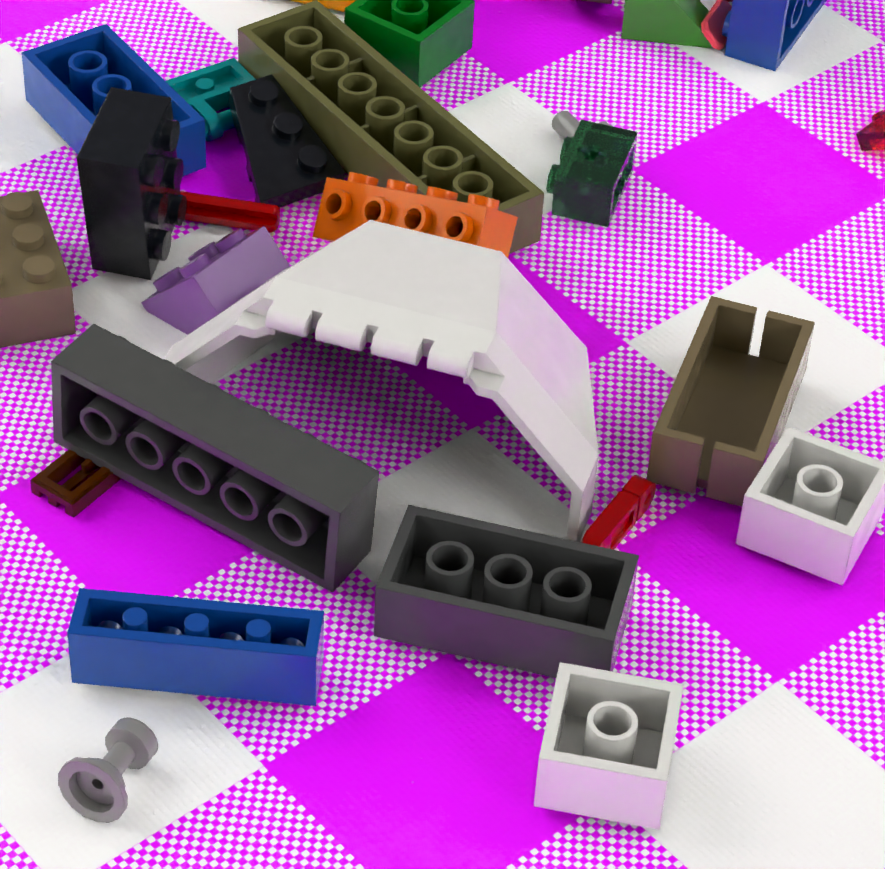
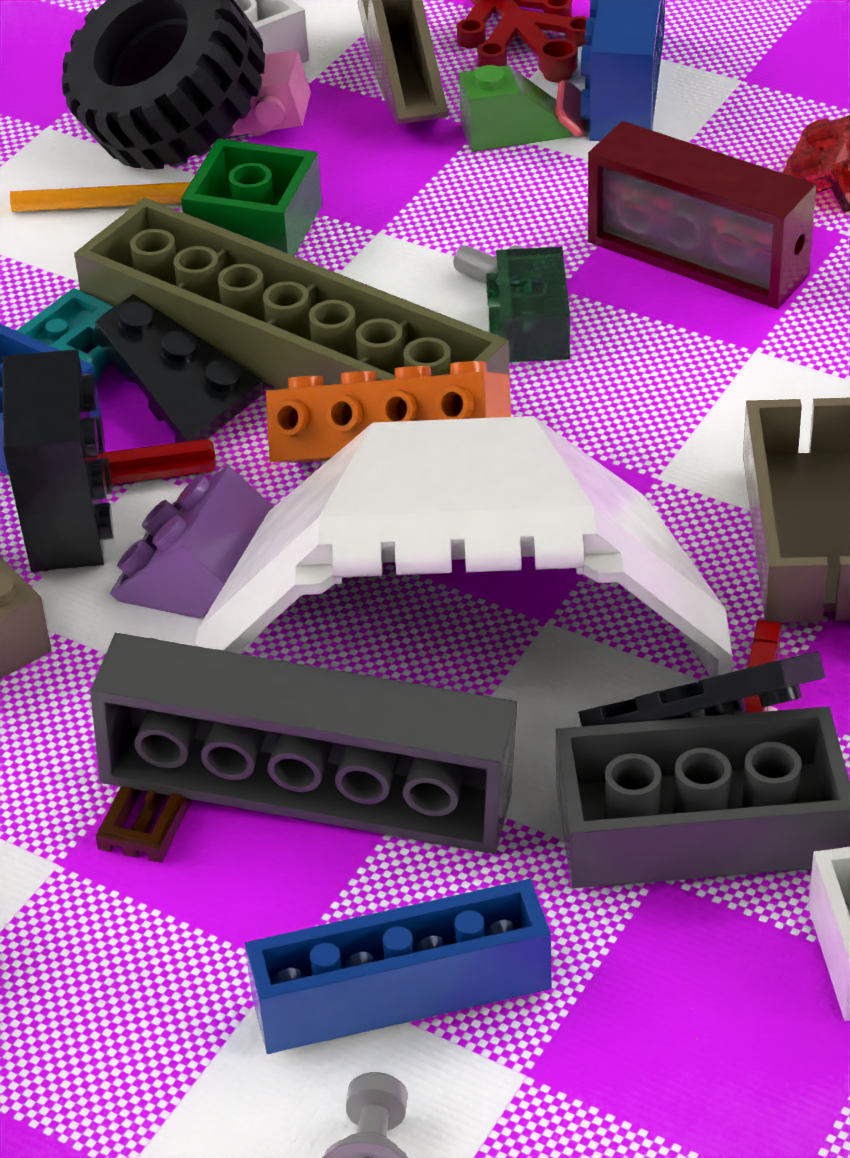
camera: 15 degrees left, 0 degrees up
(553, 517) = (718, 695): none -> black wing
(769, 137) = (700, 213): none -> dark red brick

